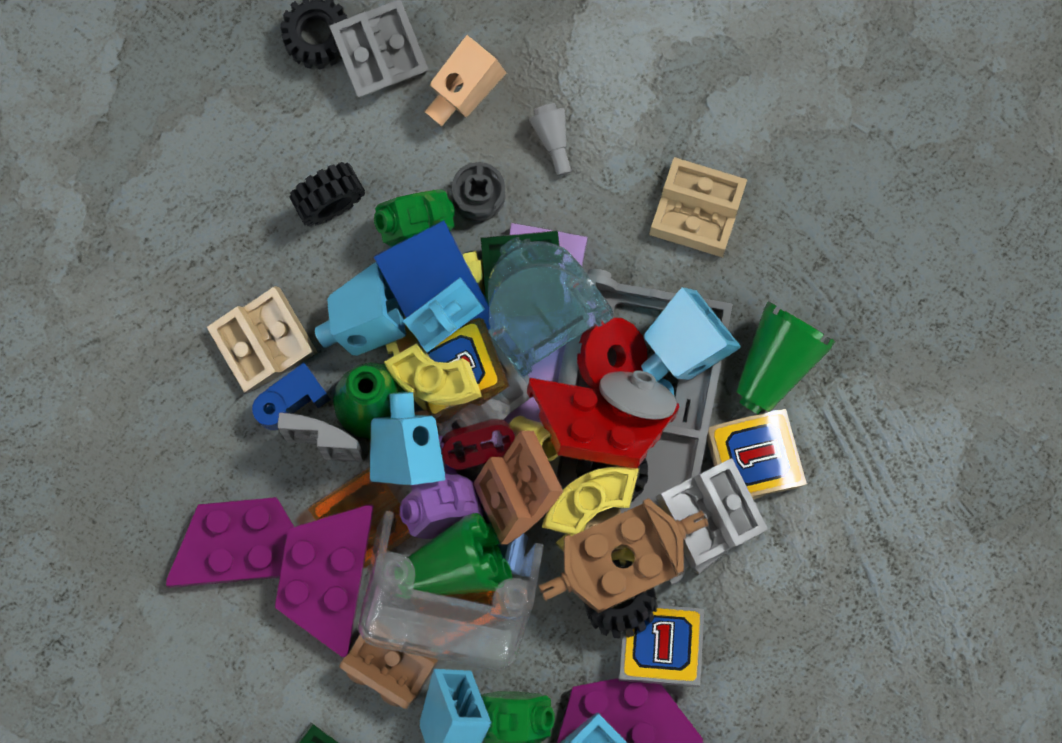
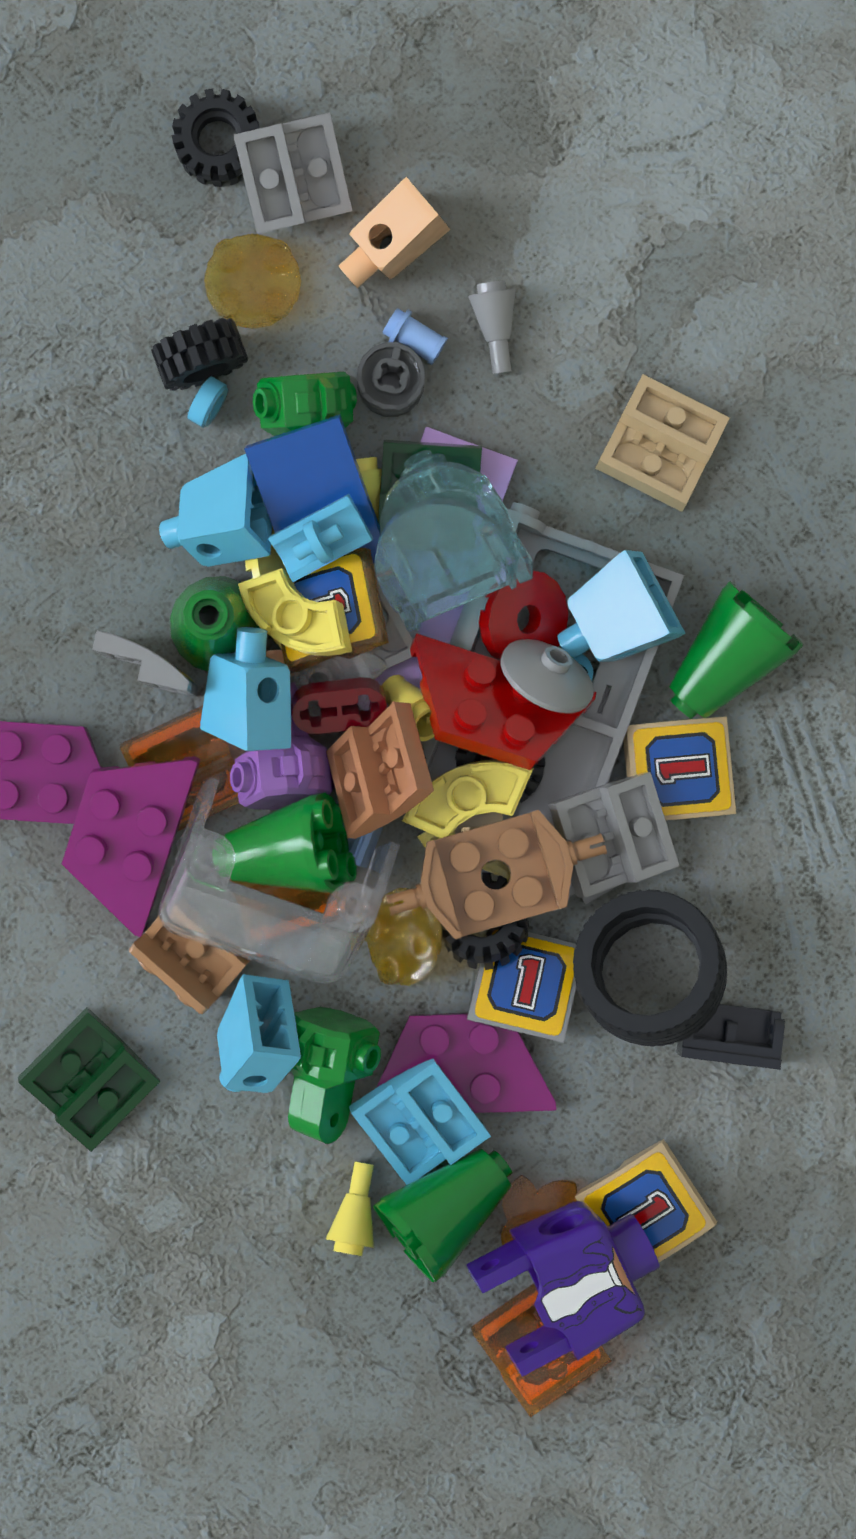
camera: 10 degrees right, 10 degrees up
(262, 339) = (93, 525): tan slope -> none
(288, 396) = (116, 602): blue leg -> none
(338, 230) = (207, 402): none -> medium azure tile
(359, 133) = (252, 280): none -> clear yellow dish
(488, 153) = (414, 334): none -> light blue pin
(558, 626) = (404, 944): none -> clear yellow dish
(738, 572) = (614, 921): none -> black tyre
(833, 660) = (738, 1037): none -> black hinge

